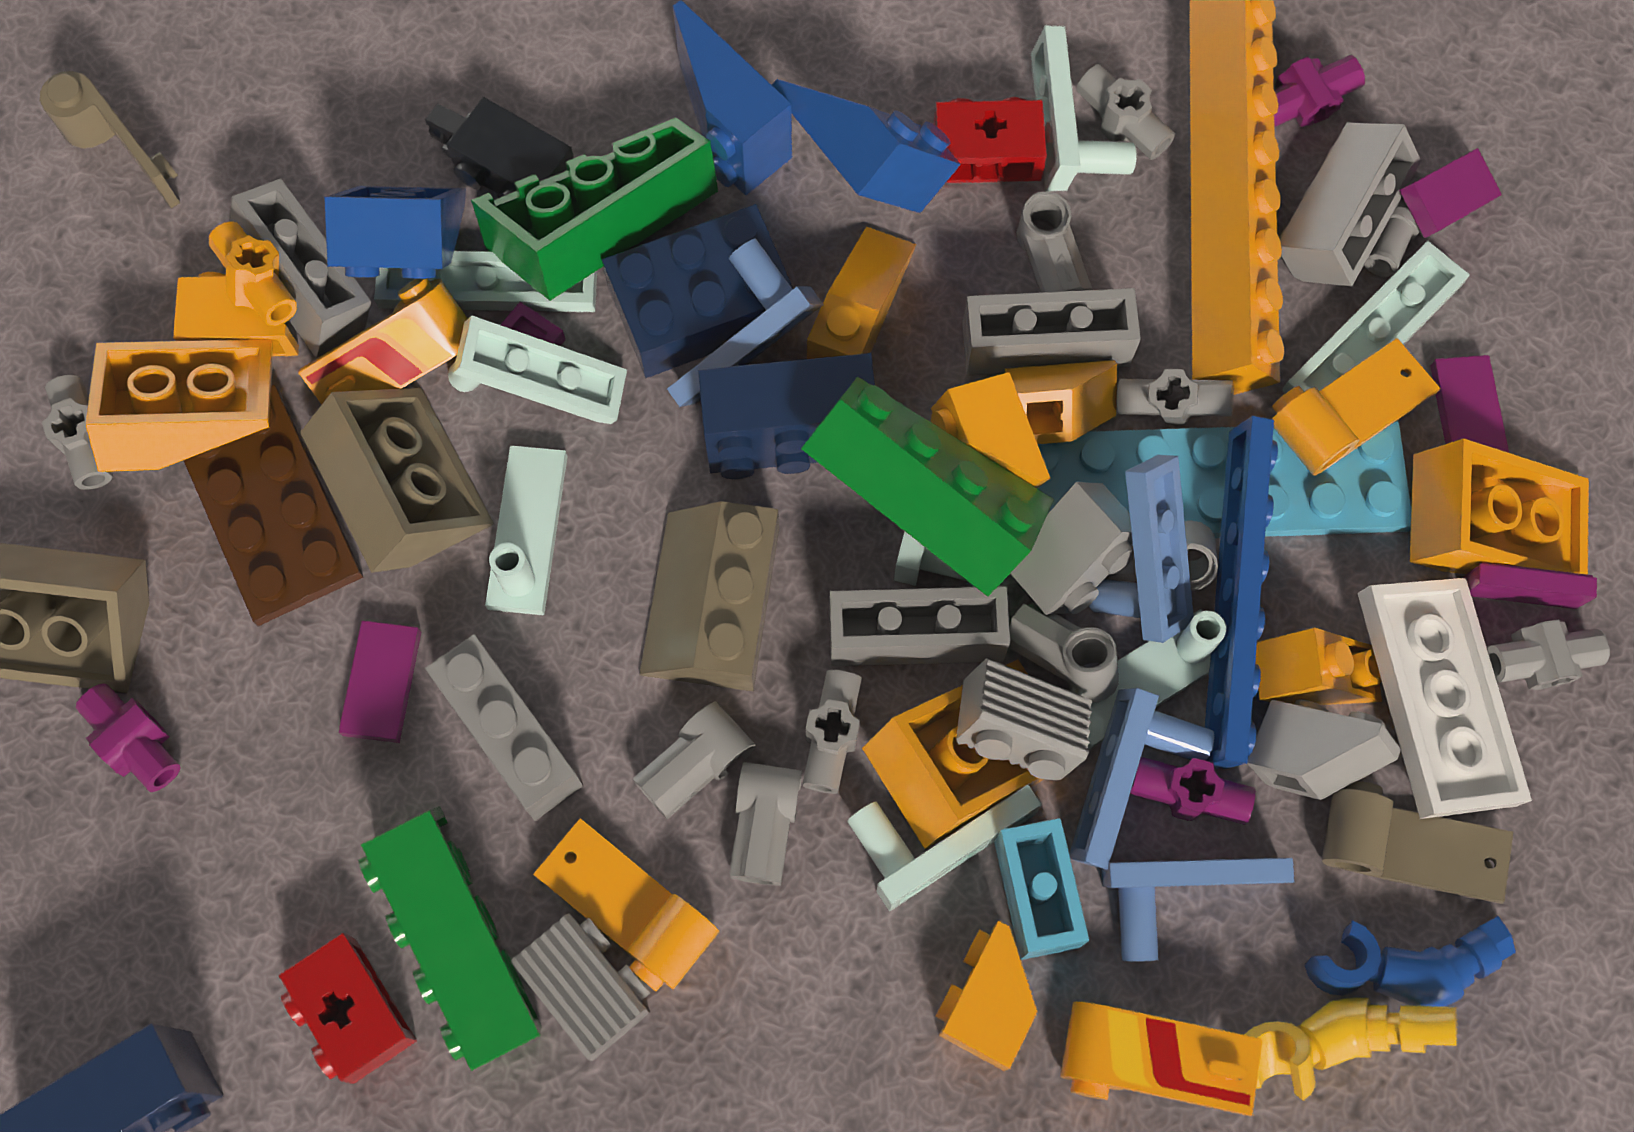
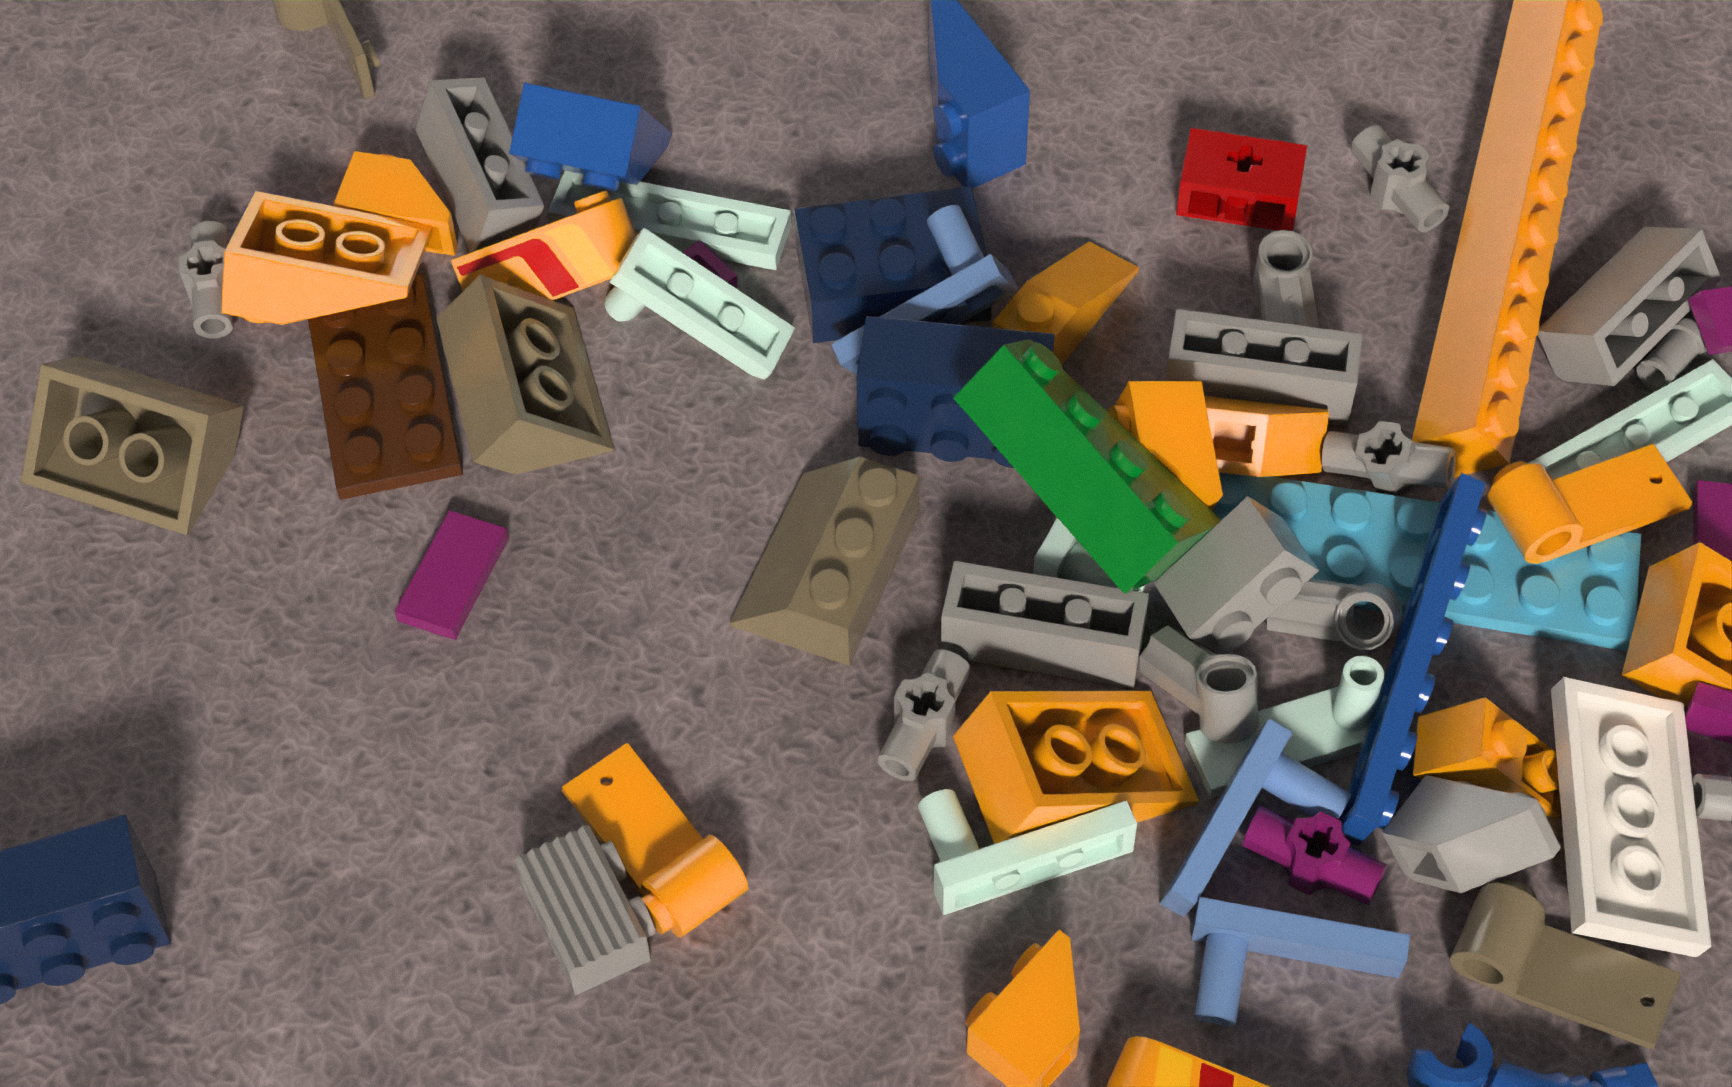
camera: 15 degrees right, 15 degrees down
(127, 737) = (176, 572): magenta axle -> none
(252, 273) = (431, 154): light orange axle -> none
(376, 1024) = (336, 912): red brick -> none
(451, 939) = (456, 822): green wedge -> none
(496, 147) = (721, 105): black hinge -> none
(504, 727) = (571, 638): light grey brick -> none
(526, 530) = (646, 462): light aqua piece -> none
(599, 207) = (762, 172): green wedge -> none
(700, 754) = (778, 707): light grey piece -> none
(765, 810) = (827, 785): light grey piece -> none
(873, 150) = (1114, 152): blue slope -> none
(1023, 720) = (1137, 733): light grey brick -> none
(1040, 889) = (1115, 913): medium azure brick -> none
(1064, 151) = (1319, 200): light aqua piece -> none
(1160, 554) = (1324, 589): medium blue piece -> none
(1314, 91) = (1615, 195): magenta axle -> none

